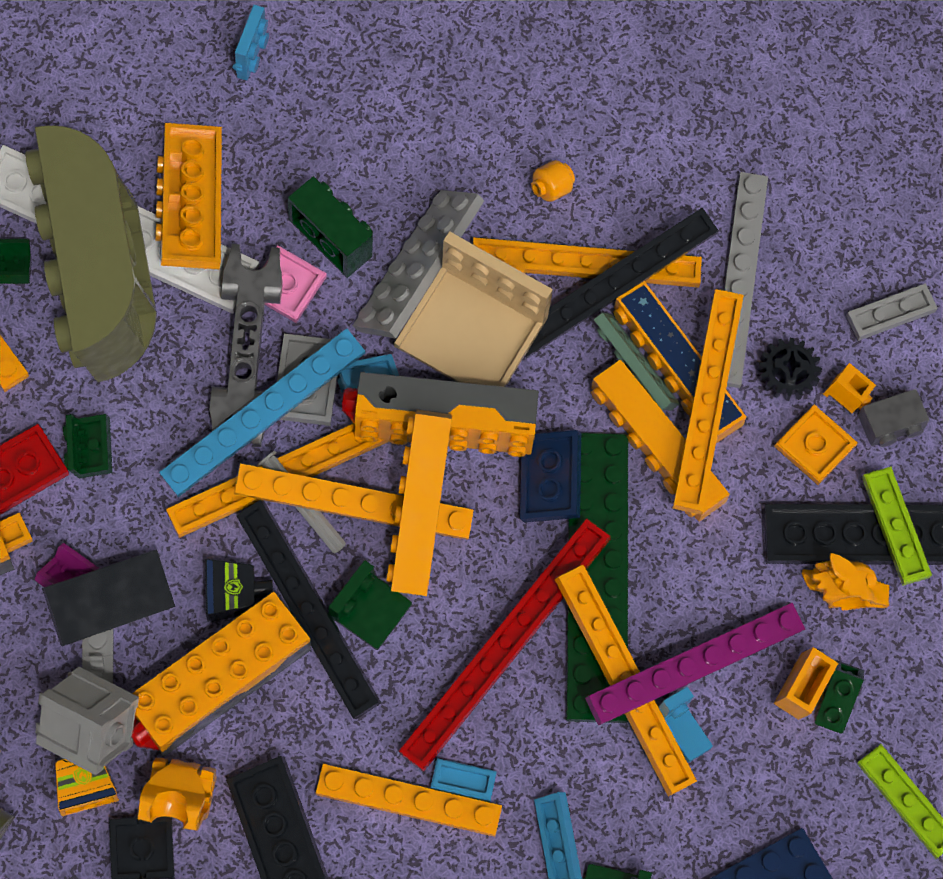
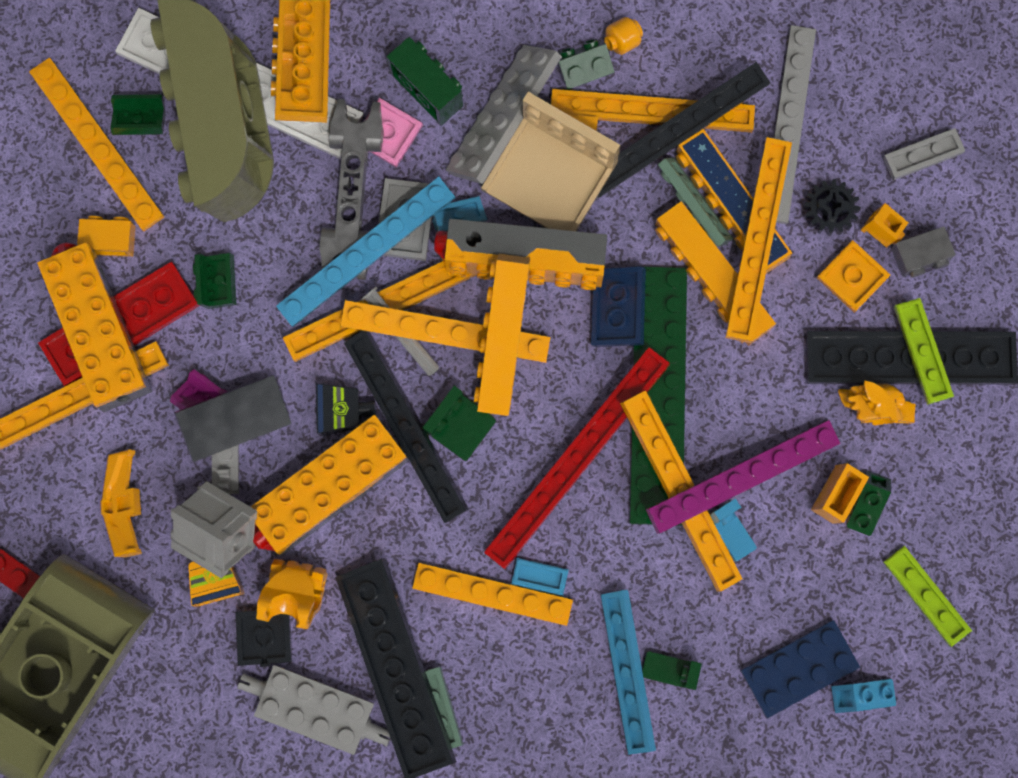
camera: 10 degrees right, 10 degrees up
(510, 211) = (585, 63): none -> bracket

